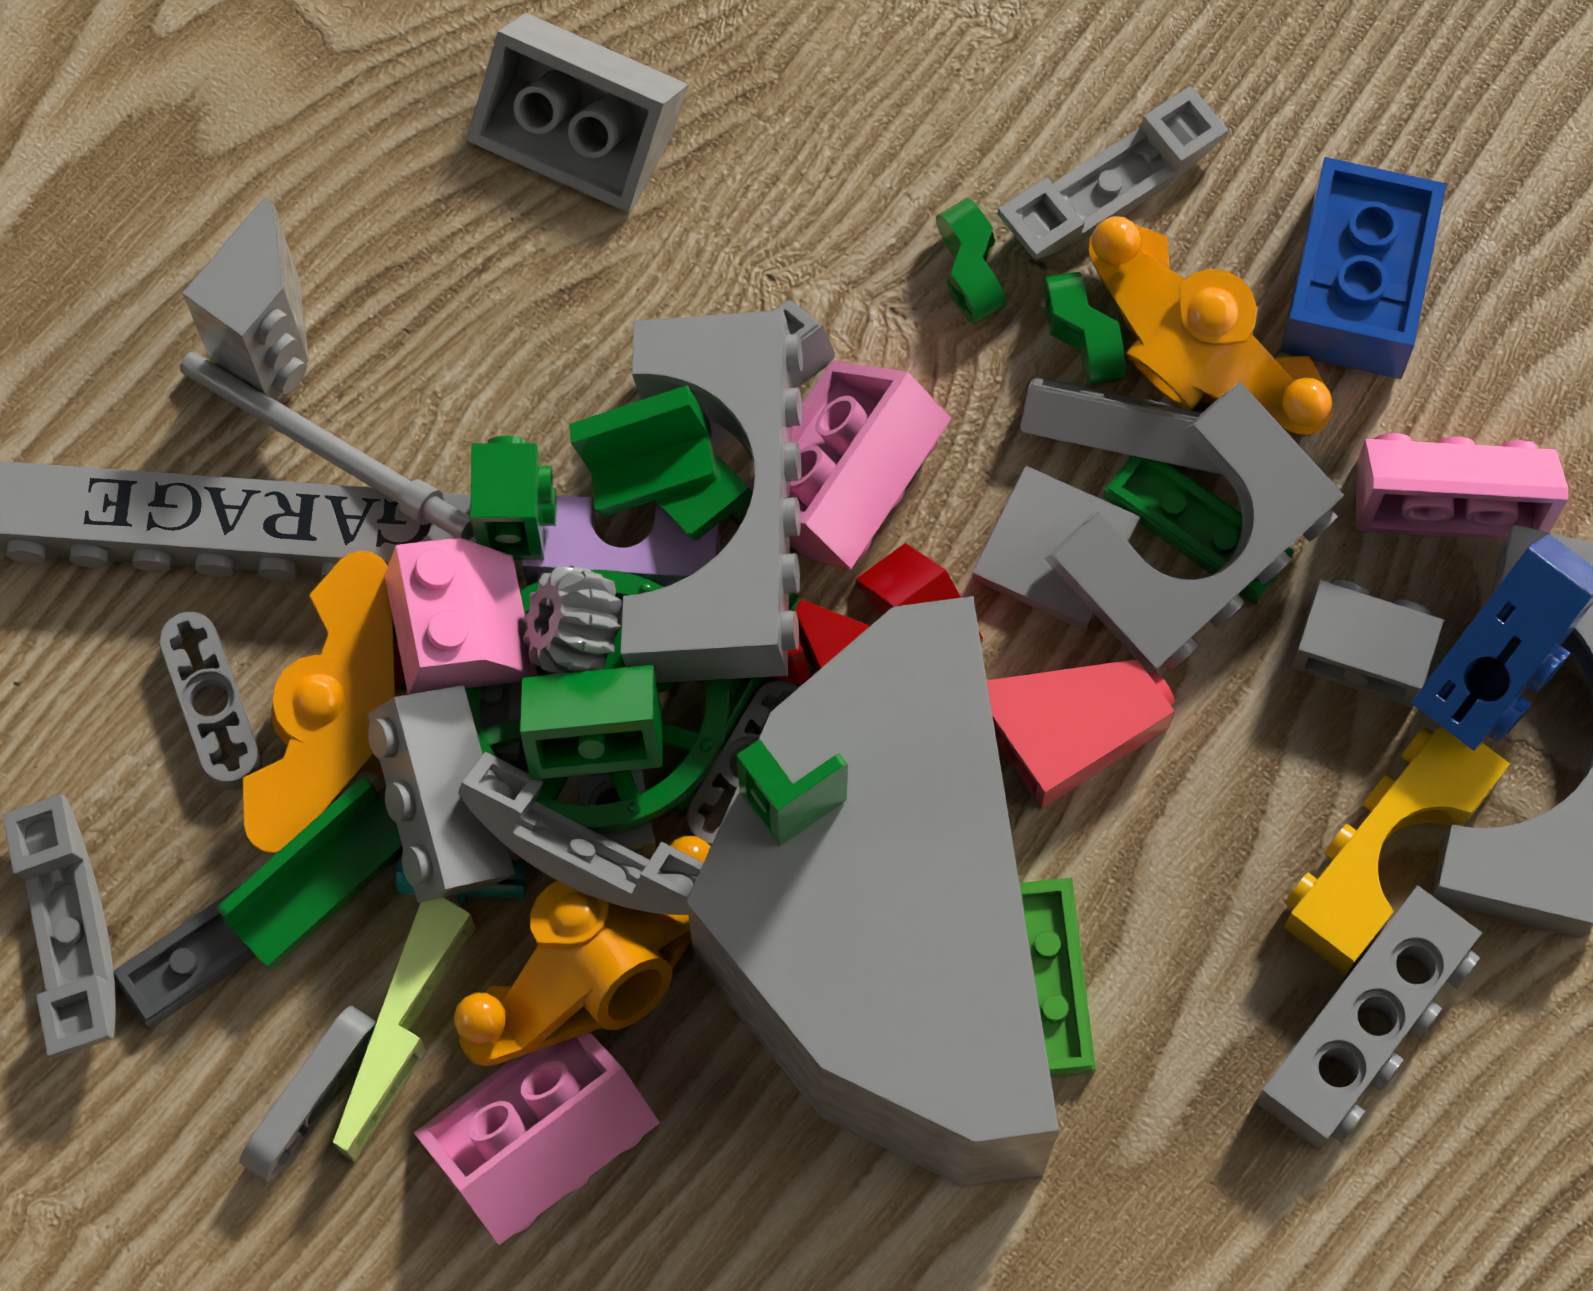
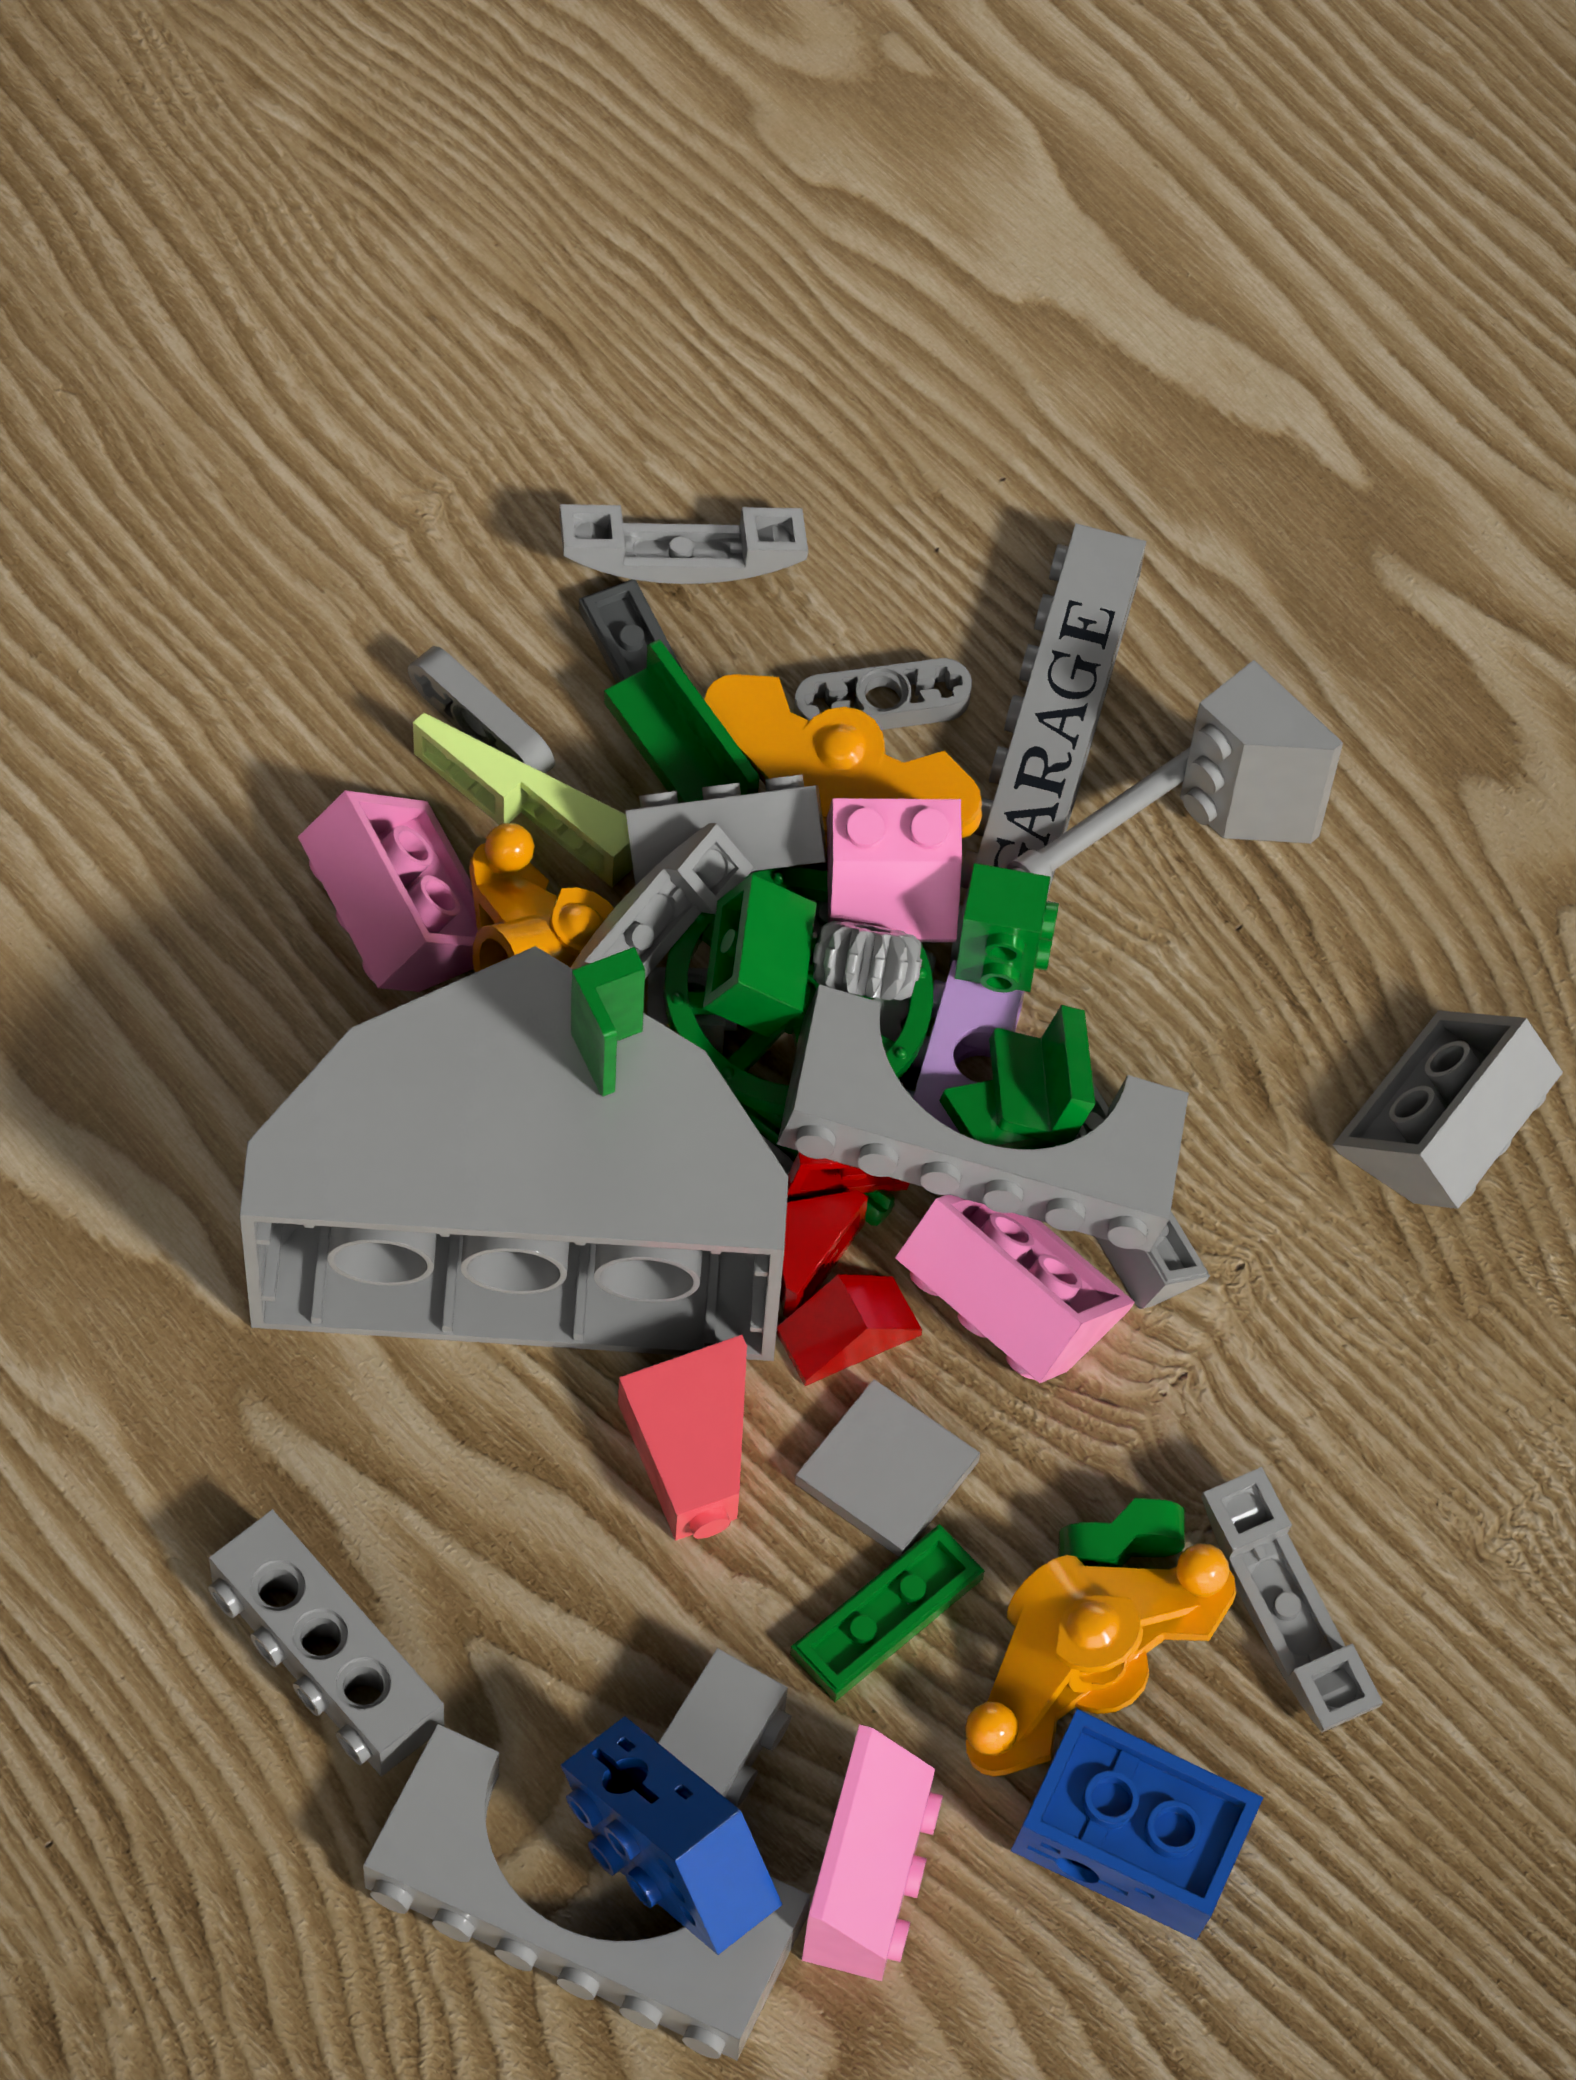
camera: 95 degrees right, 10 degrees down
(971, 279) = (1205, 1441): green piece -> none
(1059, 975) = (441, 1370): bright green tile -> none
(1112, 423) = (1009, 1546): light grey slope -> none
(1279, 501) = (886, 1659): light grey arch -> none
(1346, 904) = (455, 1652): yellow arch -> none

